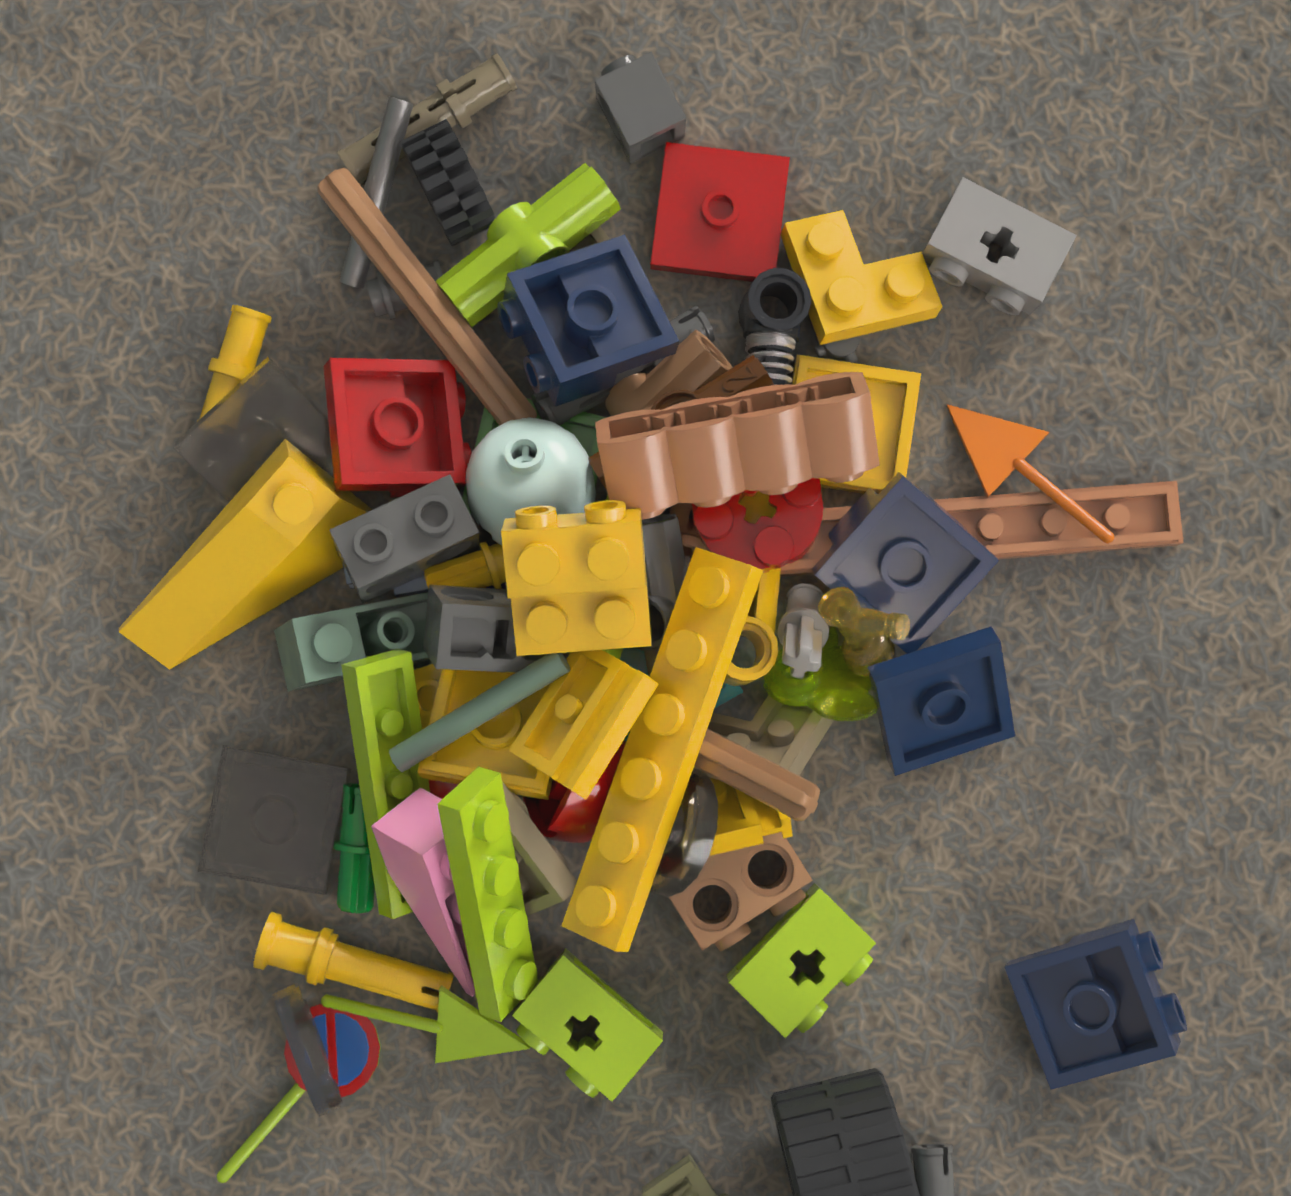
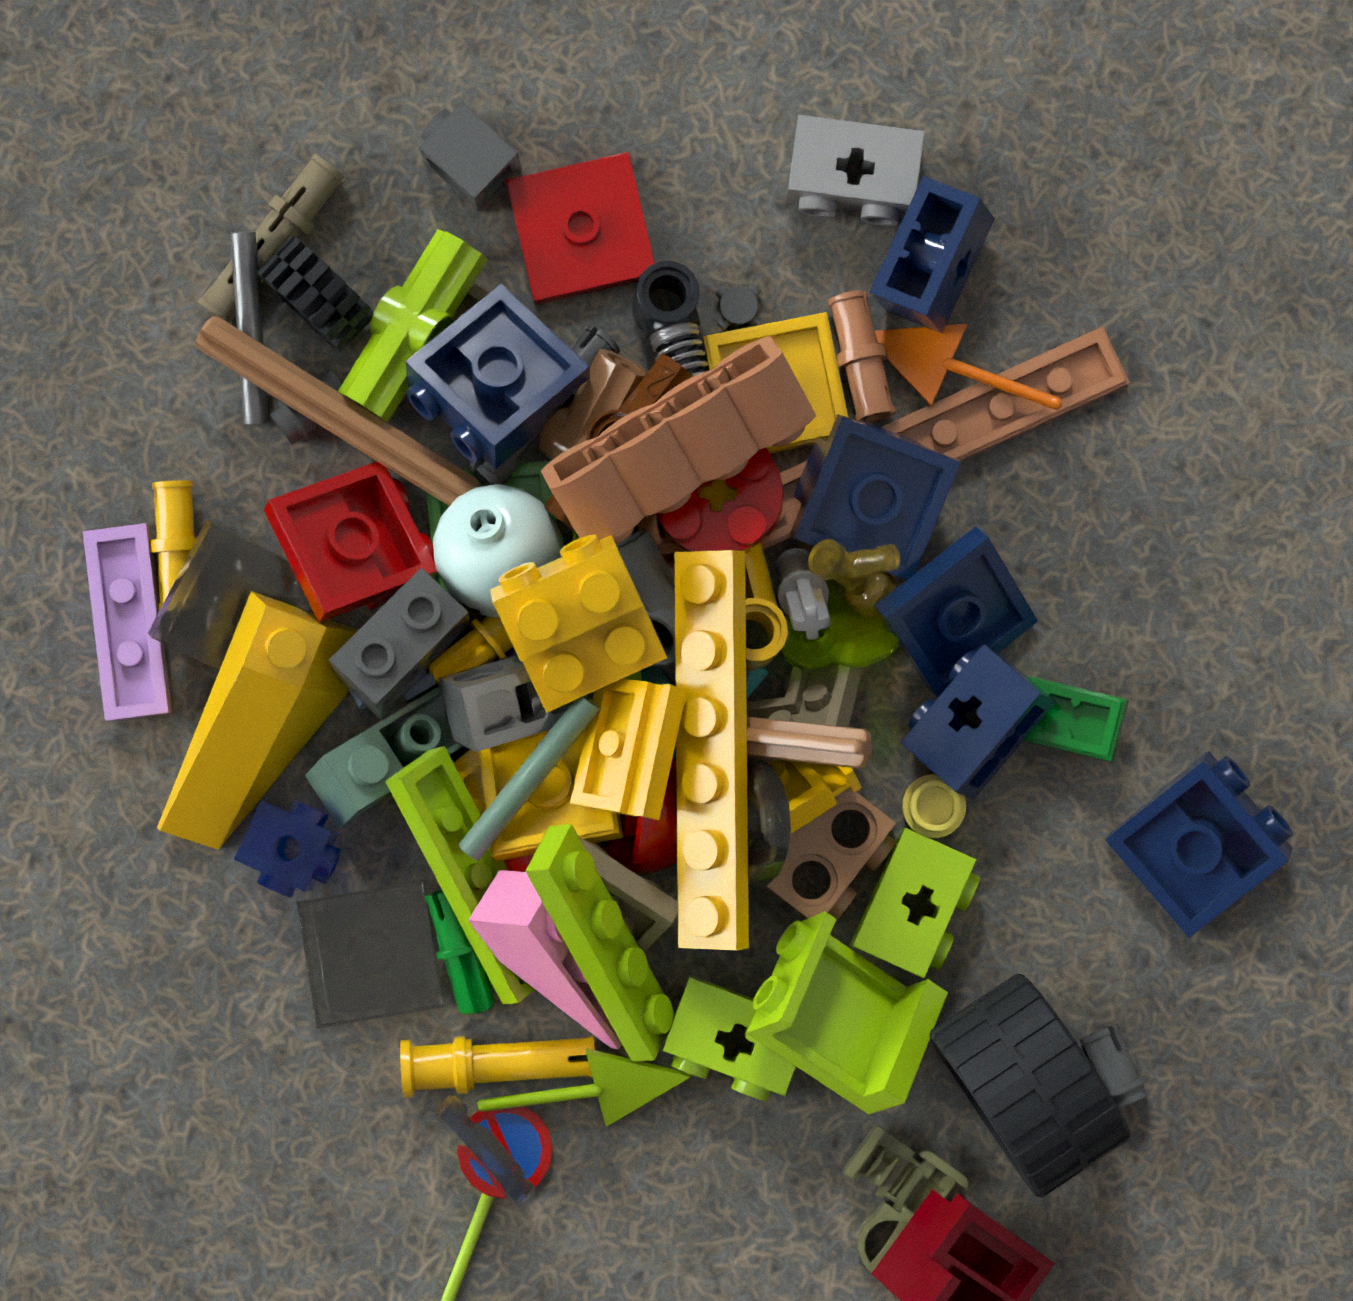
camera: 20 degrees left, 0 degrees up
(163, 408) = (123, 611): none -> lavender plate
(211, 687) = (266, 843): none -> clear blue brick
(696, 1048) = (844, 1017): none -> lime panel
(851, 295) = (732, 262): yellow plate -> none
(853, 874) = (932, 807): none -> light yellow plate
(939, 426) = (861, 356): none -> nougat pin
(958, 808) = (1008, 709): none -> dark blue brick
(1002, 833) = (1080, 721): none -> green plate
(1042, 354) = (932, 254): none -> dark blue brick

